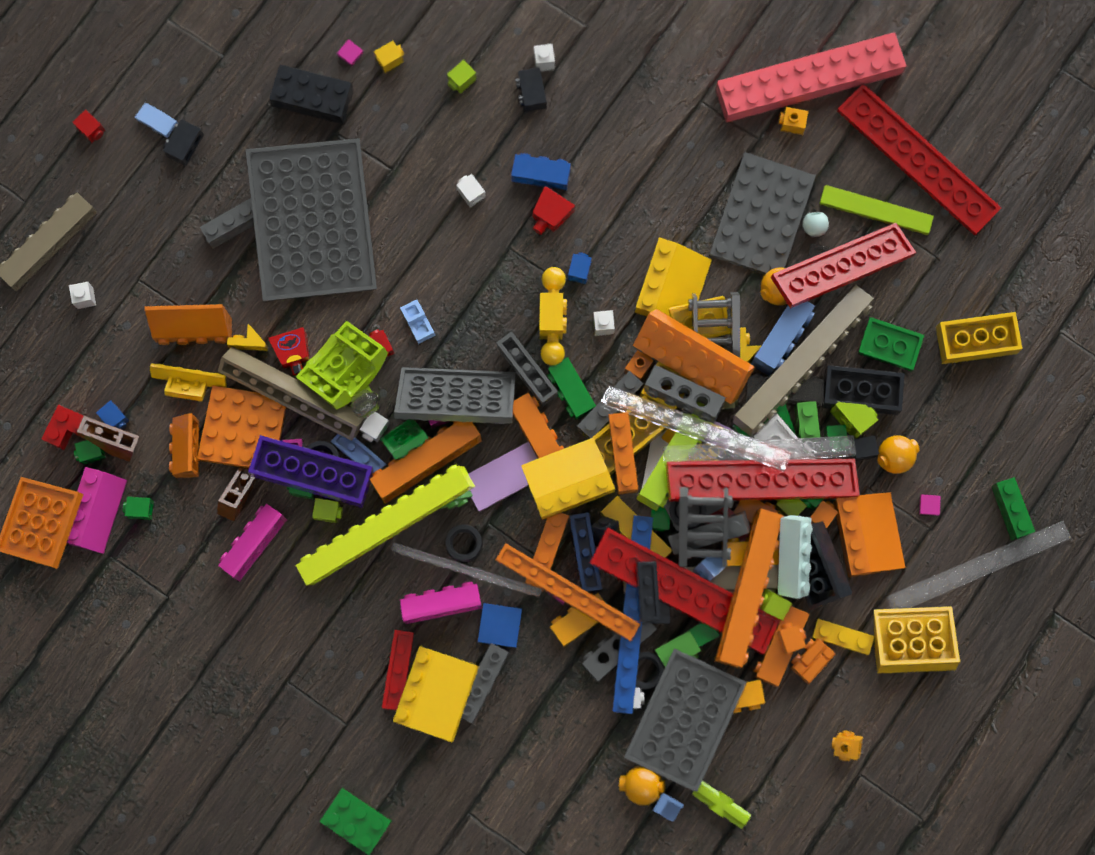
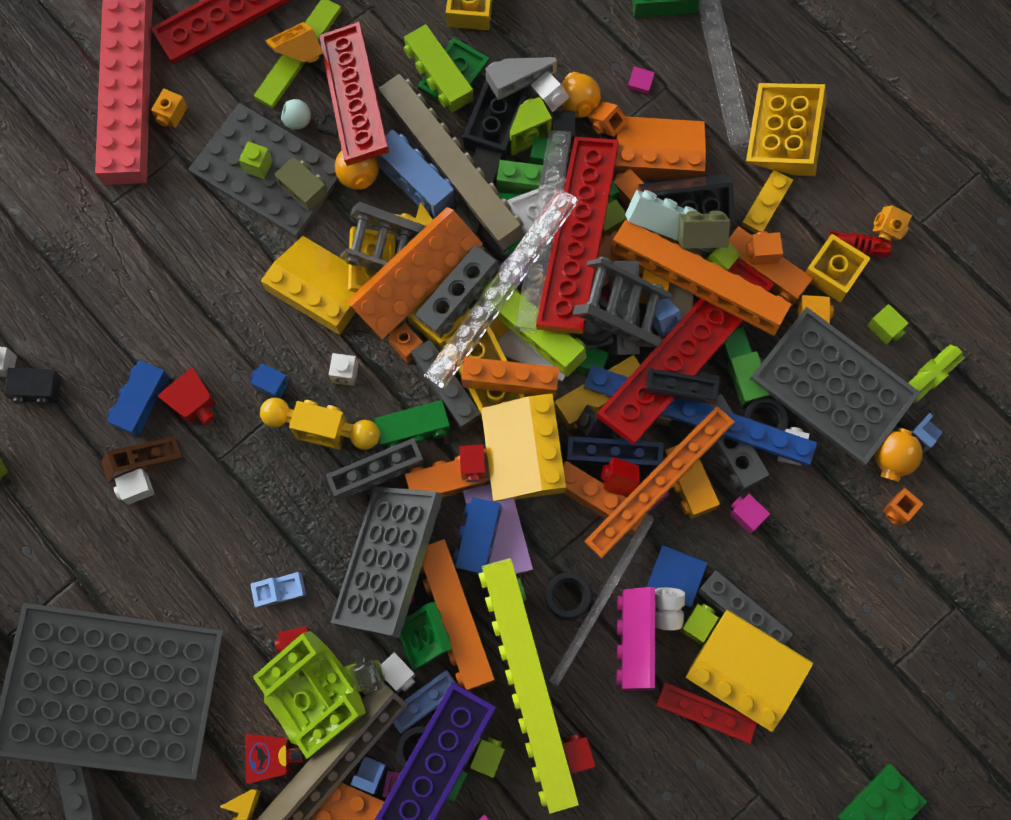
camera: 75 degrees left, 5 degrees down
(294, 426) = (369, 775): none -> medium blue panel
(344, 578) = (578, 753): none -> red brick
(466, 650) = (699, 623): none -> lime brick
(470, 622) = (668, 605): none -> white wheel
(493, 461) = (477, 535): none -> blue brick
(494, 188) = (144, 456): none -> reddish brown slope
(547, 441) = (472, 462): none -> red brick
(564, 672) = (748, 513): none -> dark pink brick
(565, 560) = (620, 477): none -> red brick
(596, 795) = (902, 507): none -> orange brick
(751, 246) = (301, 183): none -> olive brick
(755, 759) = (888, 325): none -> lime brick
(762, 203) = (255, 160): none -> lime brick
(789, 581) = (703, 230): none -> olive brick
(793, 704) = (836, 267): none -> yellow brick
(812, 660) = (794, 239): orange brick -> none
(824, 723) = (865, 244): none -> red hinge
(879, 205) = (297, 43): none -> light orange slope
(880, 483) = (607, 119): none -> orange brick
(887, 329) = (438, 68): none -> lime brick
(888, 427) = (550, 91): none -> white brick
(893, 393) = (517, 73): none -> light grey slope

